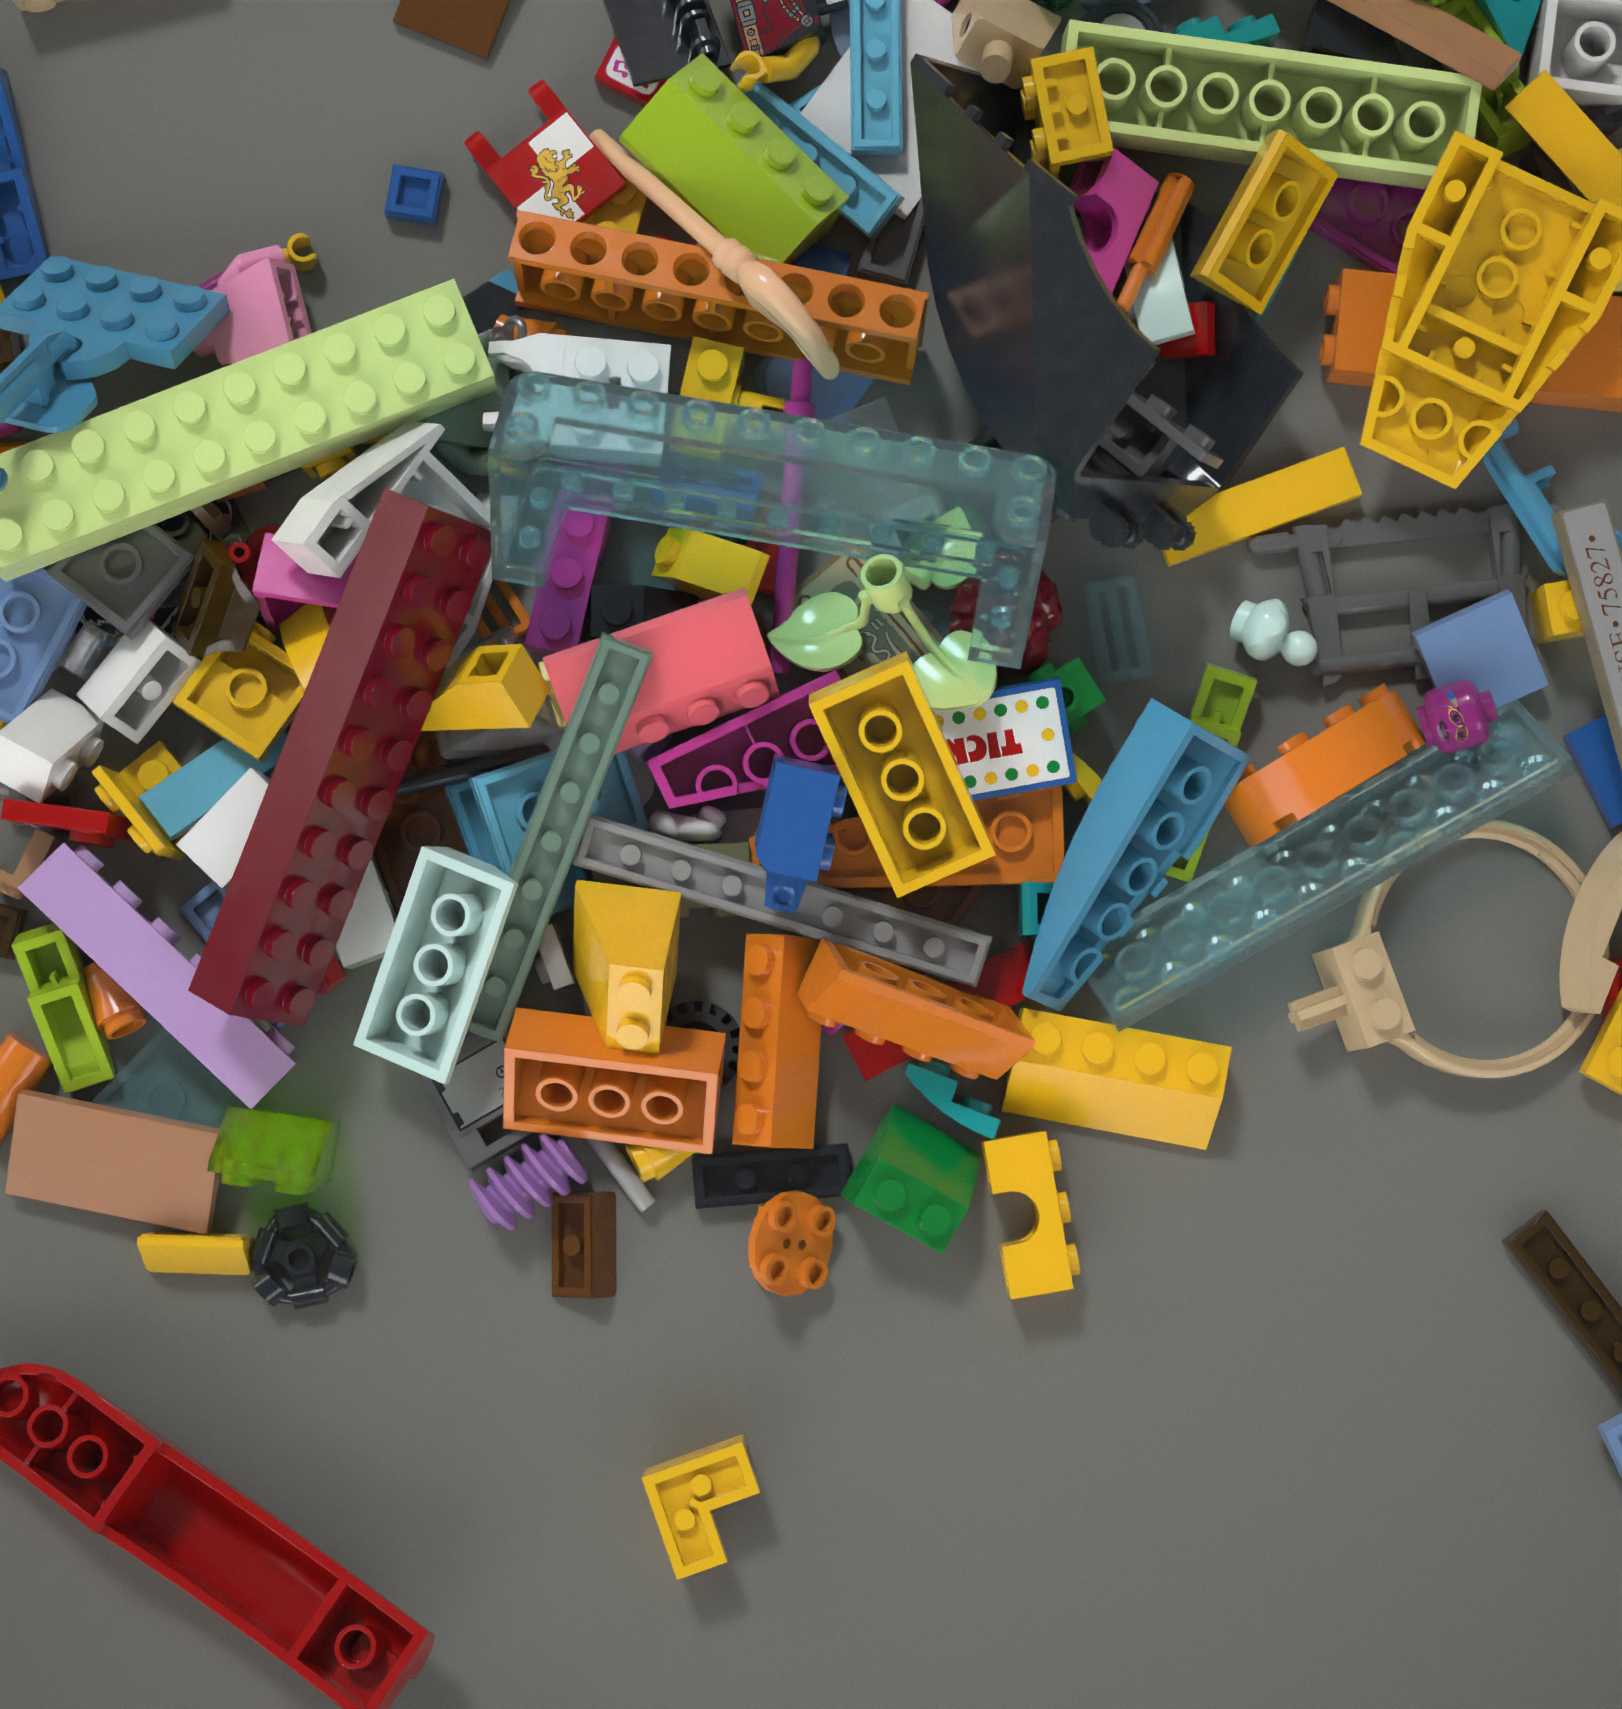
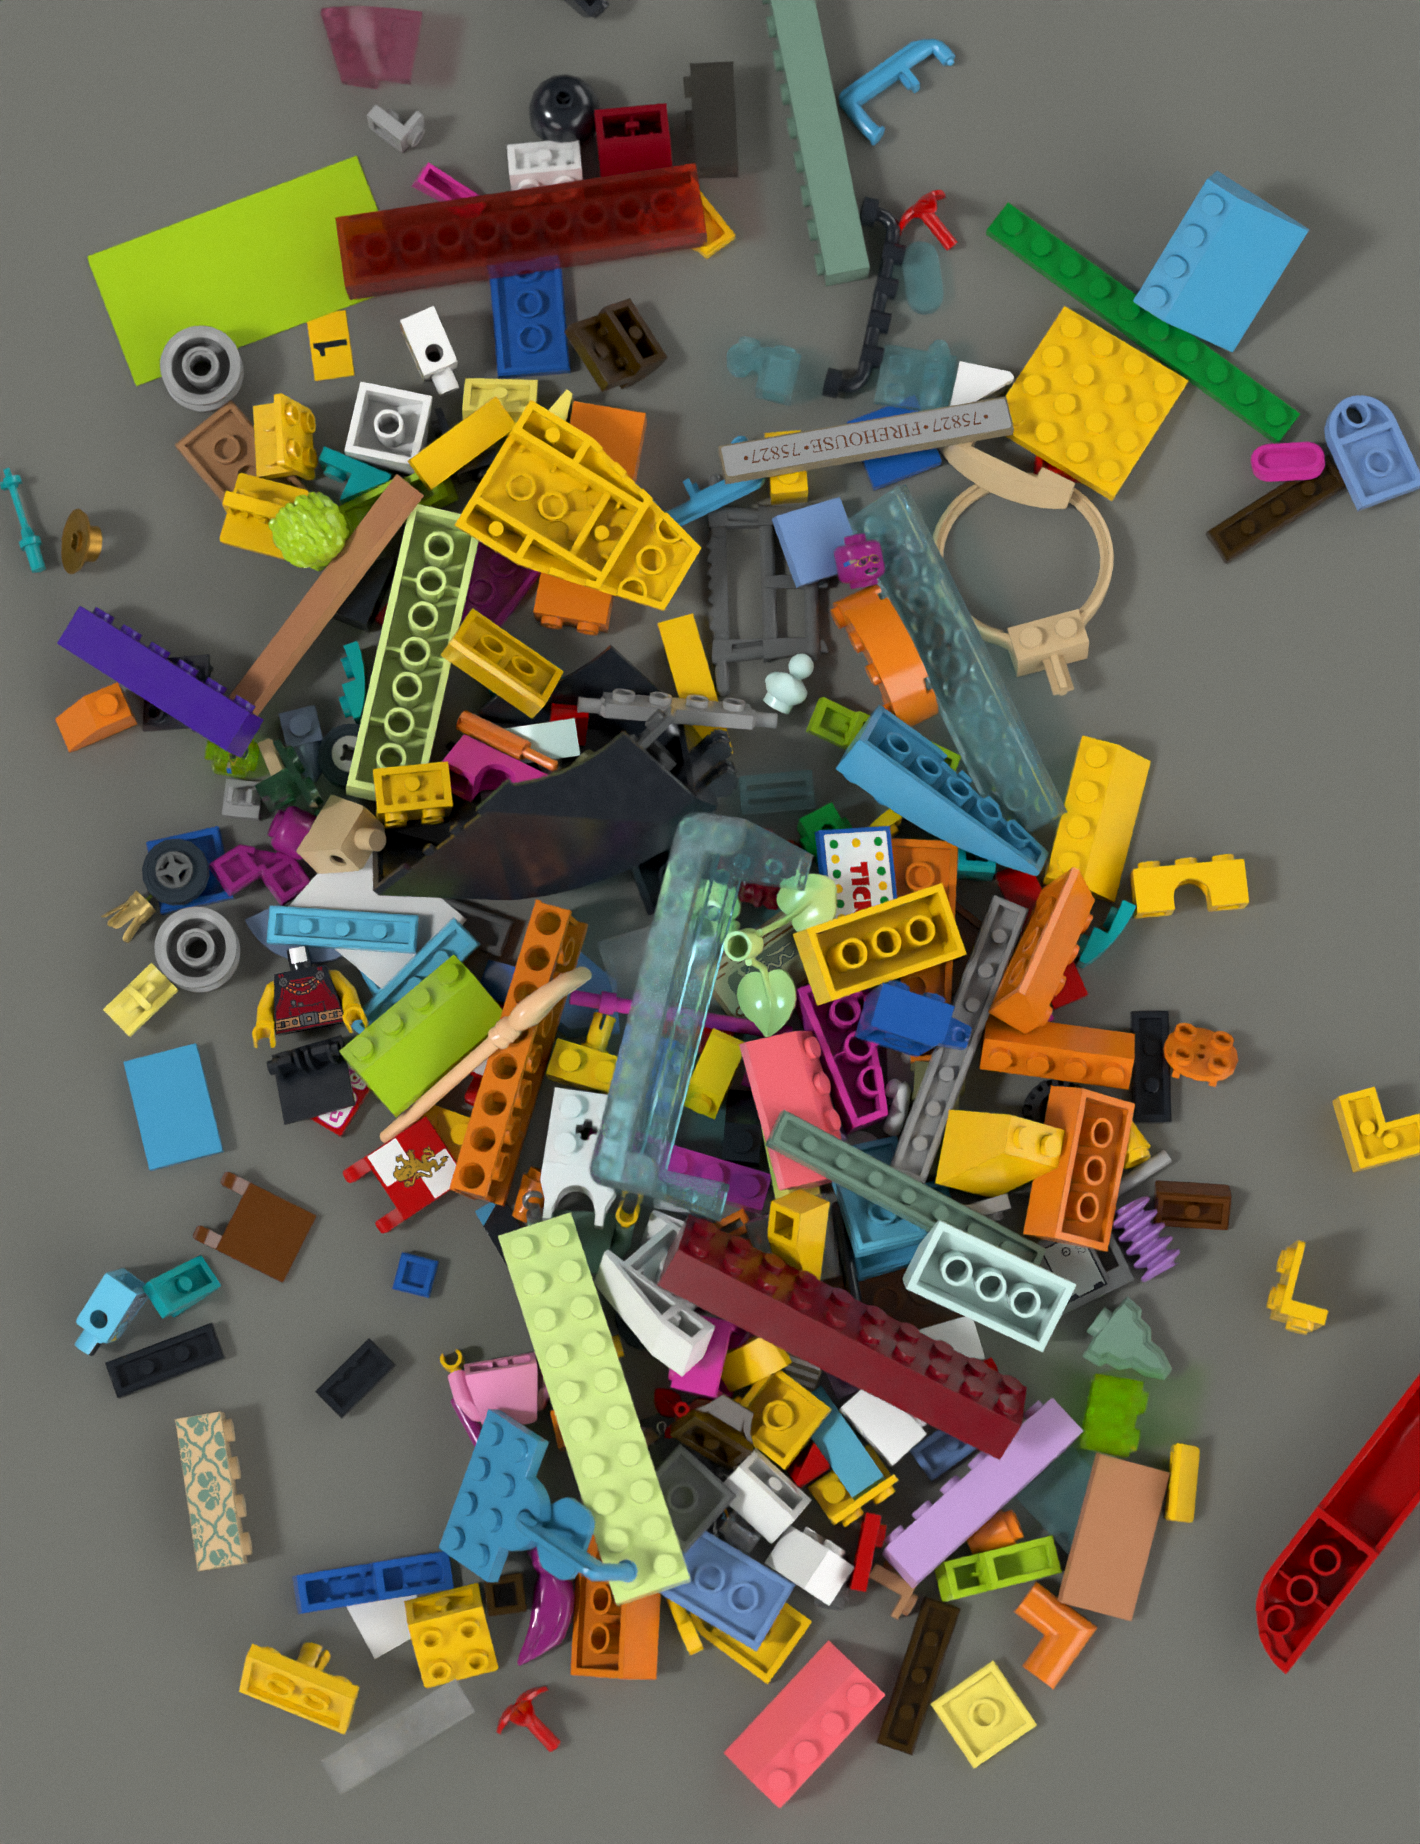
camera: 85 degrees left, 5 degrees down
(184, 736) = (807, 1465): none -> red slope
(269, 126) = (355, 1378): none -> black plate
(301, 1258) = (1189, 1407): black piece -> none
(384, 1162) = (1125, 1342): none -> sand green rock
(429, 1399) = (1298, 1316): none -> yellow bracket
(915, 1178) = (1160, 964): green slope -> none
(1219, 495) = (690, 711): none -> light grey plate

